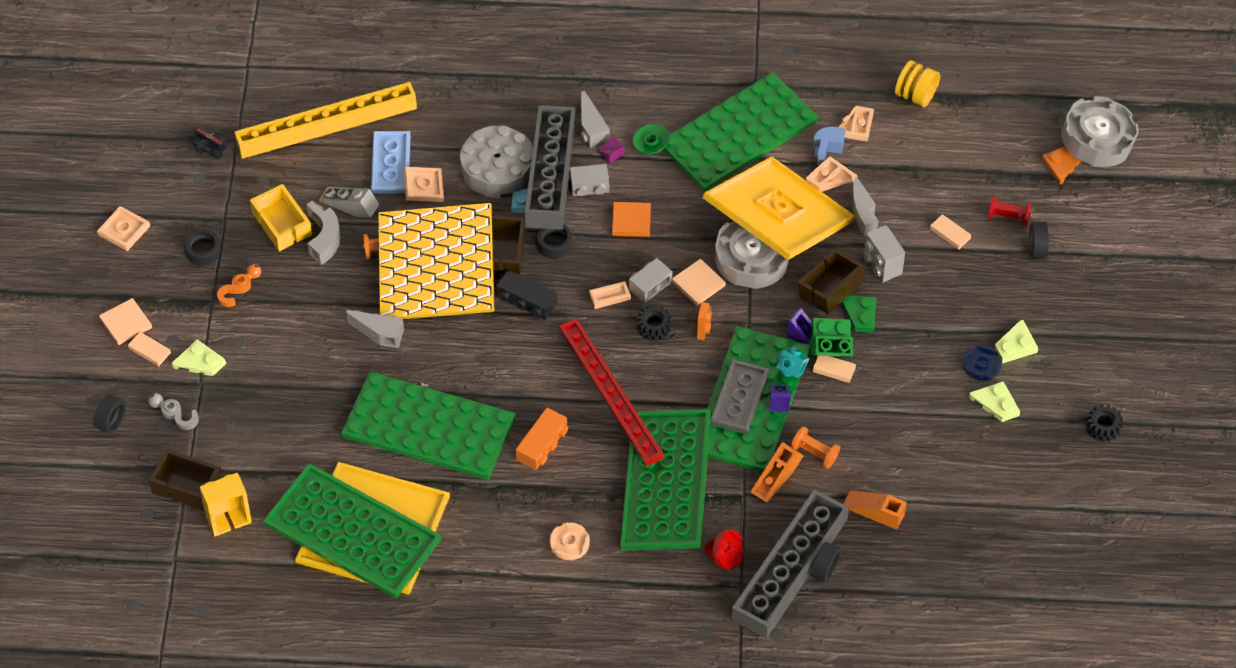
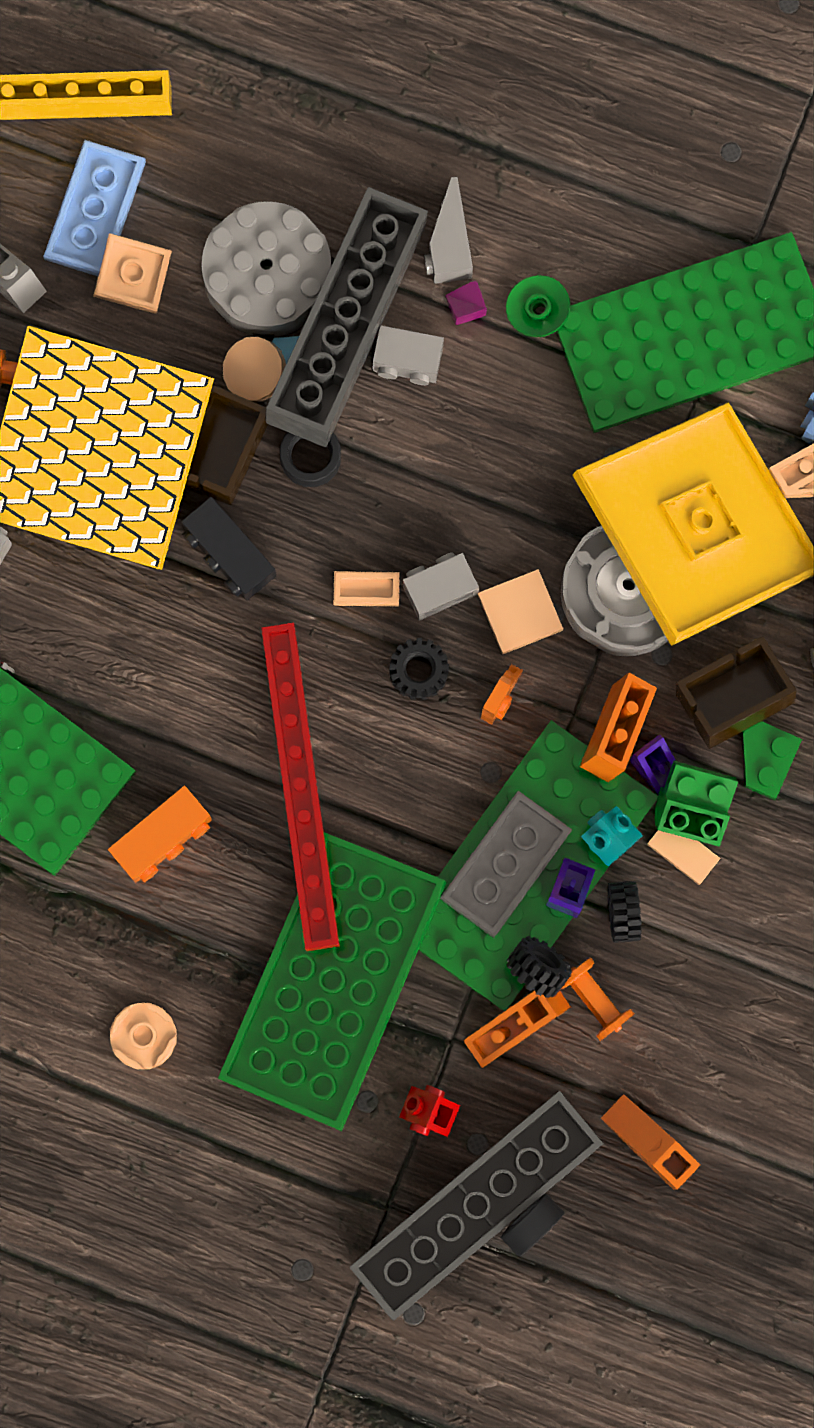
camera: 15 degrees right, 25 degrees up
(508, 204) = (253, 368): none -> light nougat tile
(631, 219) = (452, 451): orange tile -> none
(726, 549) = (383, 1147): red tile -> none
(746, 524) = (429, 1111): none -> red brick
(774, 313) = (618, 727): none -> orange brick
(778, 432) = (539, 967): none -> black tyre
(814, 399) = (624, 911): none -> black tyre

